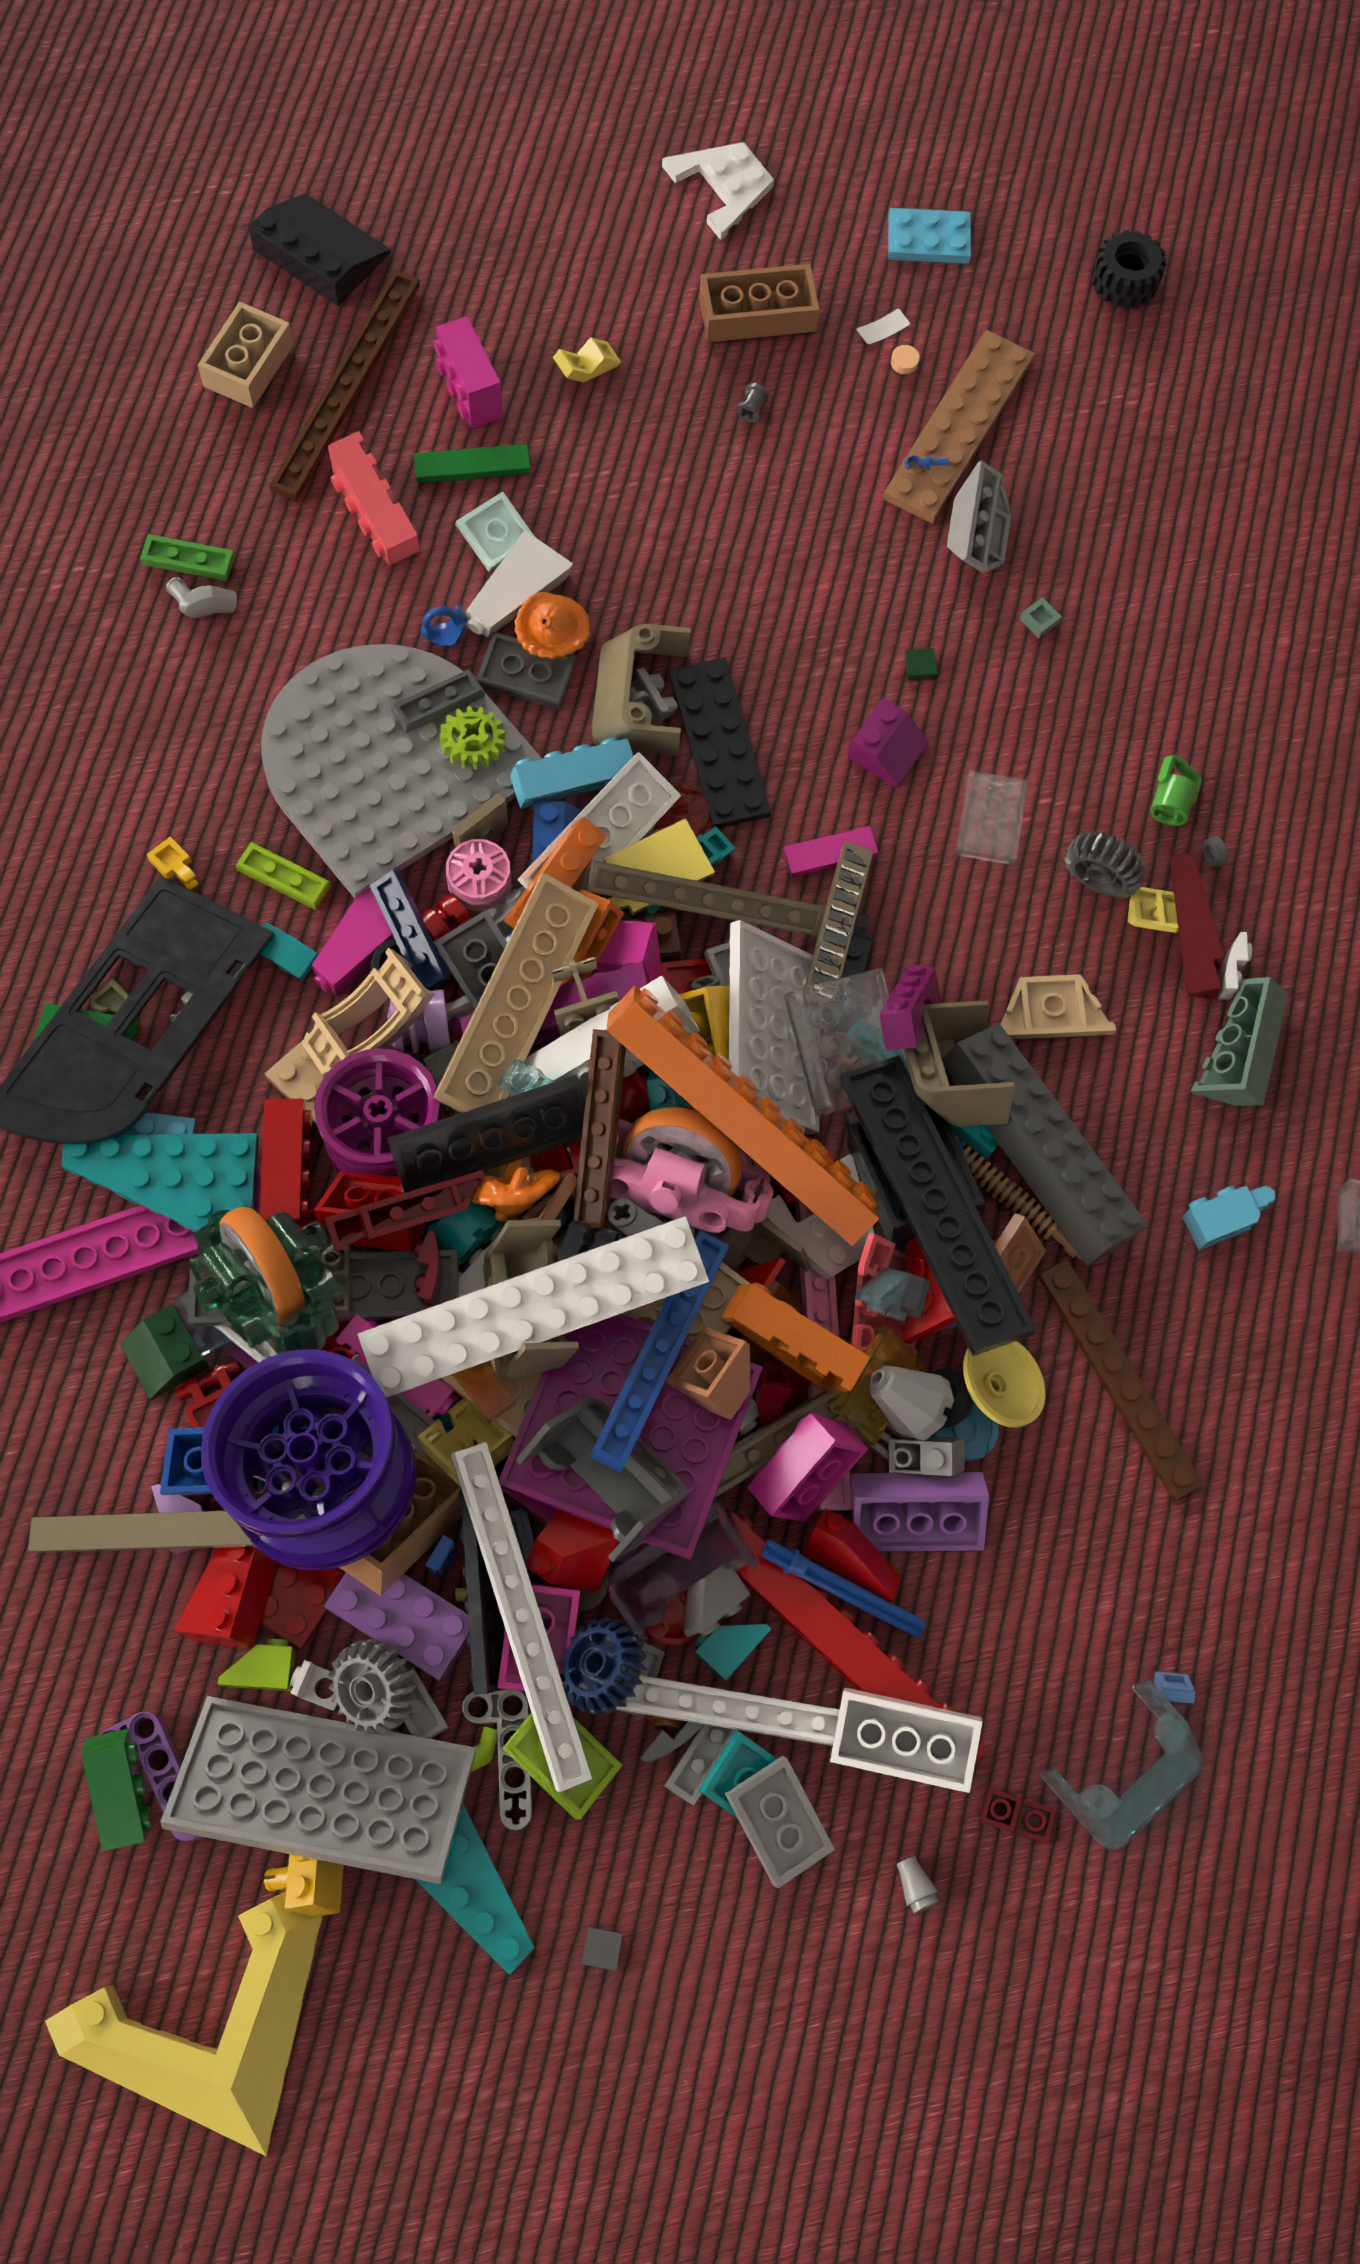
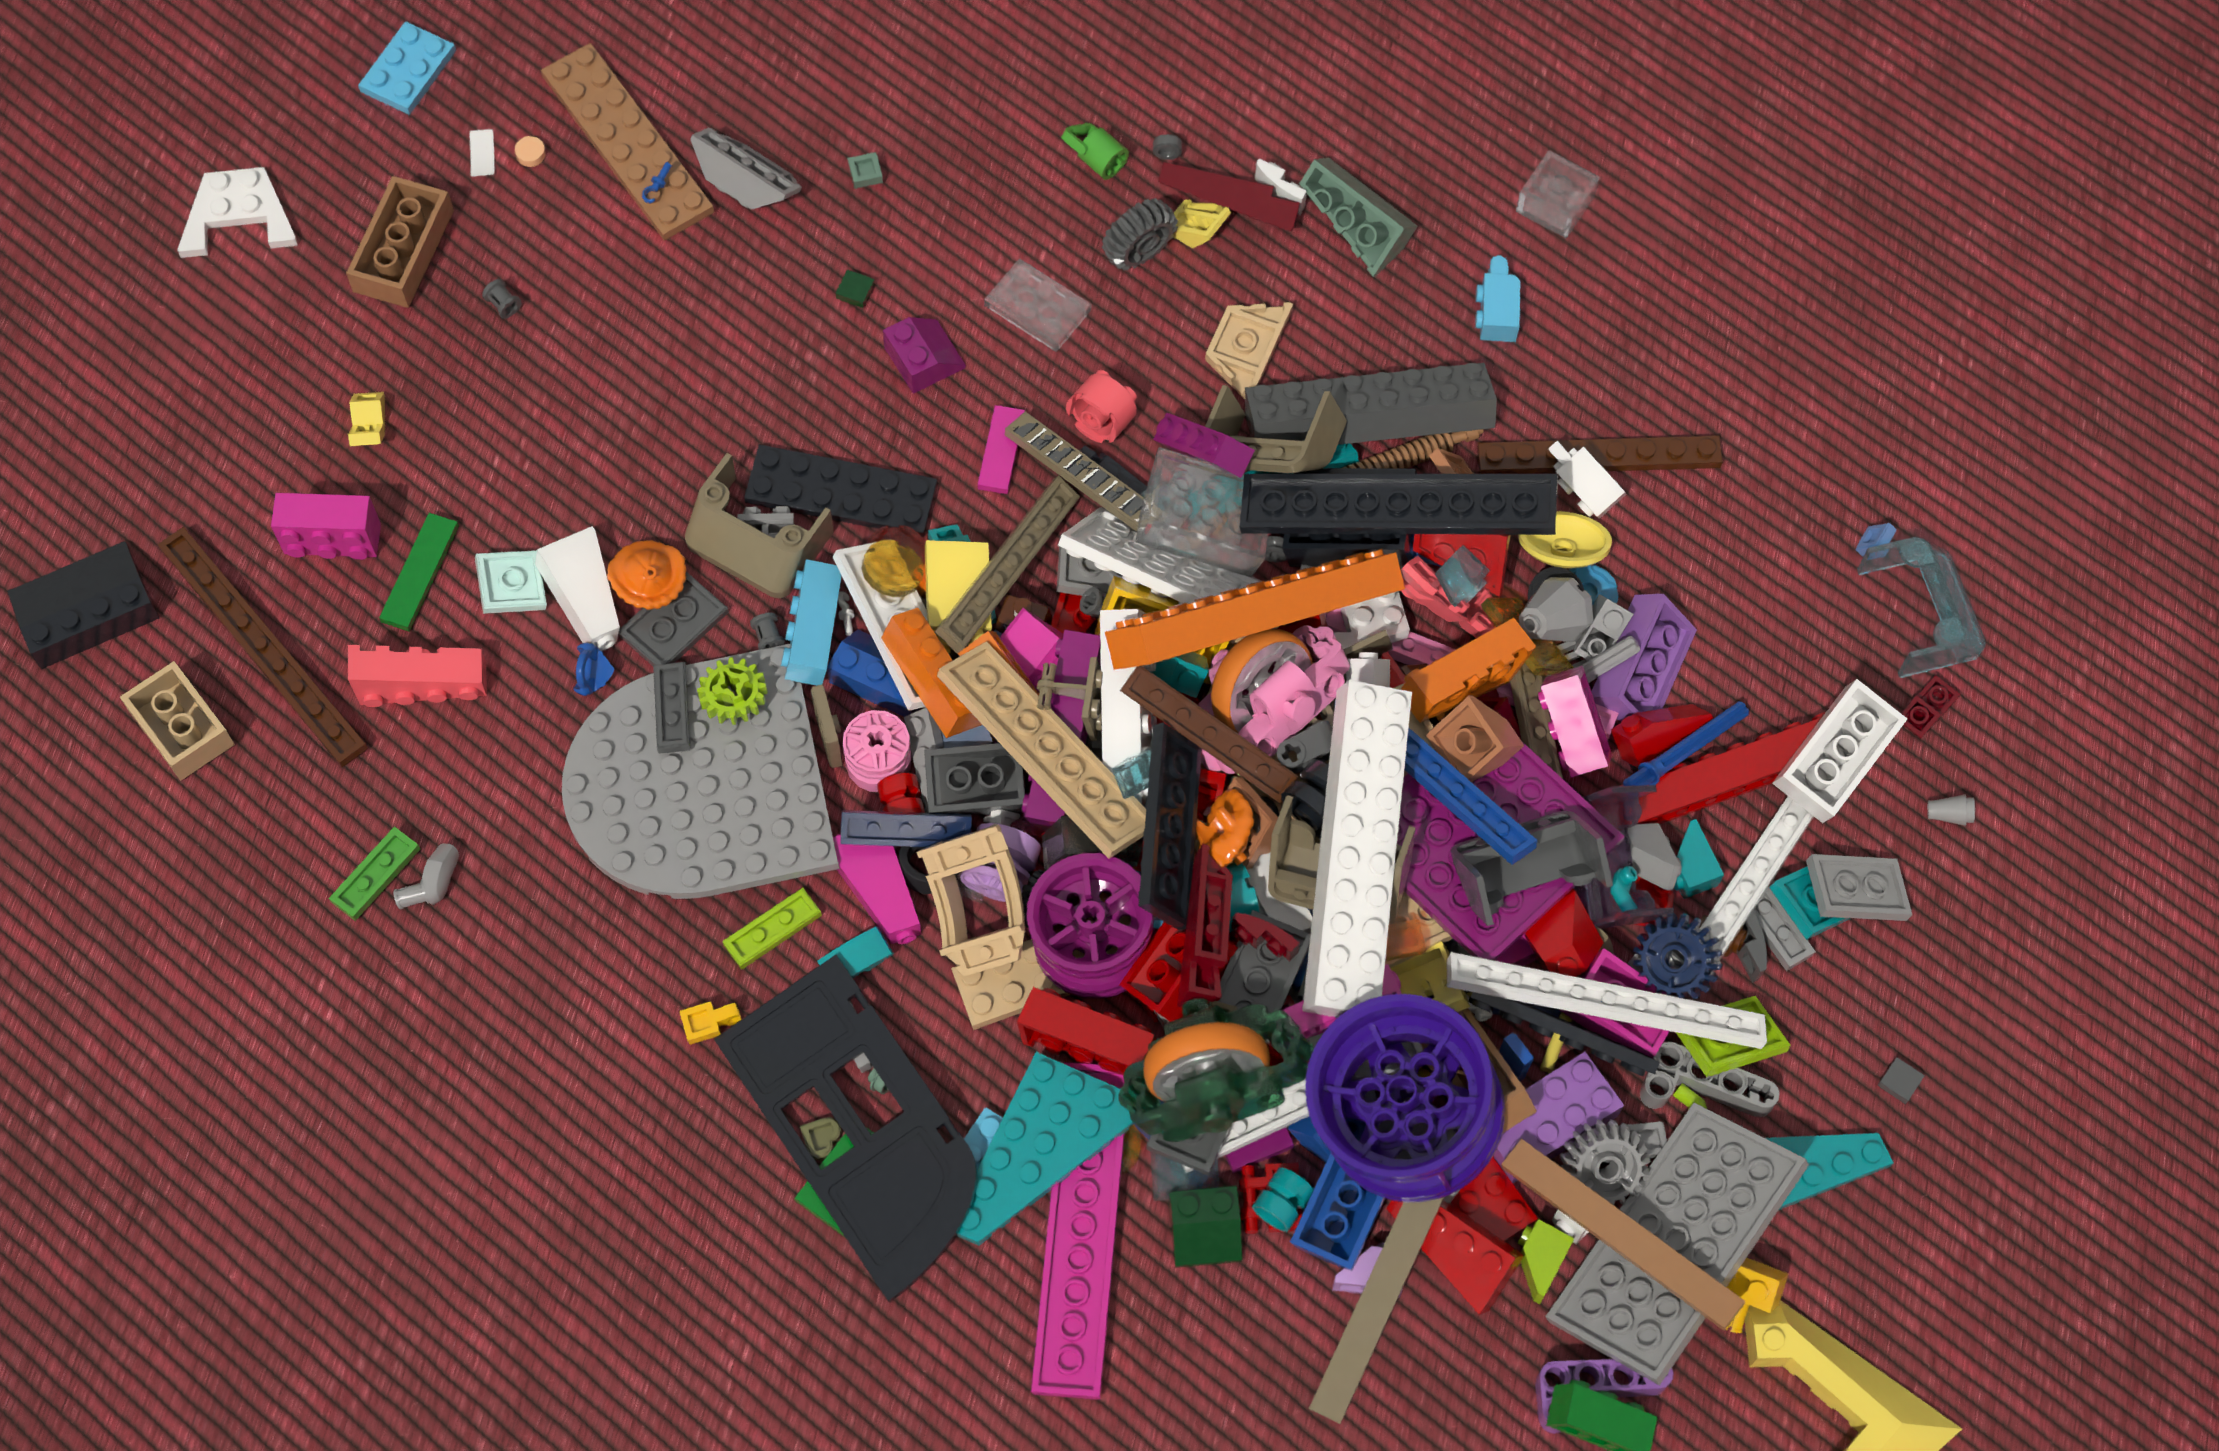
camera: 60 degrees left, 5 degrees down
(197, 1402) = (1281, 1202): none -> teal wheel
(292, 1732) = (1623, 1234): none -> medium nougat tile
(554, 741) = (767, 630): none -> dark grey bush
(648, 805) = (892, 568): none -> clear yellow tile
(656, 1584) = (1621, 887): none -> teal arm
(751, 1254) = (1369, 669): none -> white brick
(892, 1472) = (1611, 658): none -> light grey axle
(912, 911) = (1102, 407): none -> coral brick
(1079, 1374) = (1587, 479): none -> white hinge

